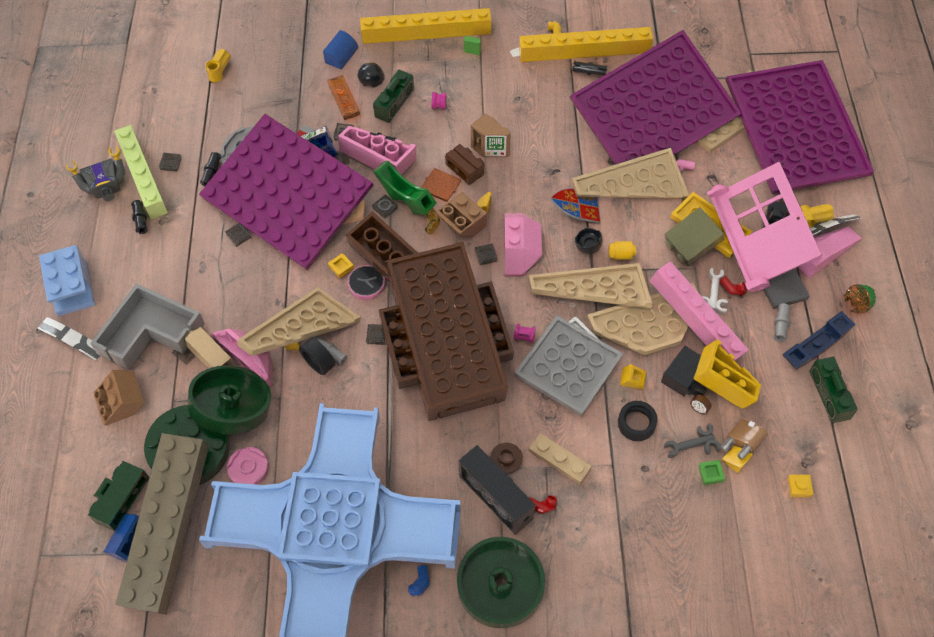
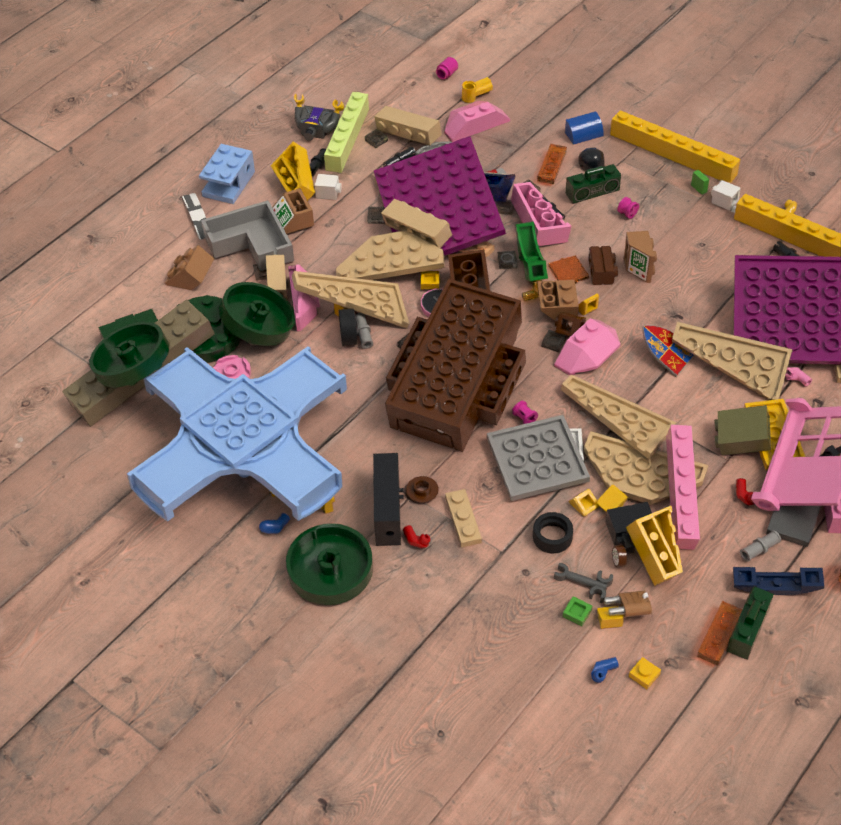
camera: 40 degrees right, 10 degrees down
(133, 241) = (294, 170): none -> yellow wedge
(164, 528) = (129, 354): none -> dark green piece
(165, 277) = (294, 211): none -> medium nougat slope
(172, 235) = (327, 187): none -> white brick
(174, 59) = (446, 68): none -> dark pink brick
(191, 133) = (408, 125): none -> tan brick
(240, 95) = (473, 120): none -> bright pink wedge
(290, 222) = (426, 226): none -> tan brick
(290, 267) = (391, 256): none -> tan plate
(493, 236) = (563, 327): none -> reddish brown brick
(500, 45) = (725, 195): none -> white brick
(589, 240) = (648, 380): black hair -> none
(622, 250) = (670, 404): yellow brick -> none
(655, 361) = (612, 498): none -> yellow slope
(714, 293) = (715, 494): white bar -> none
(769, 506) = (601, 667): none -> blue arm
(820, 413) = (719, 633): none -> clear orange plate

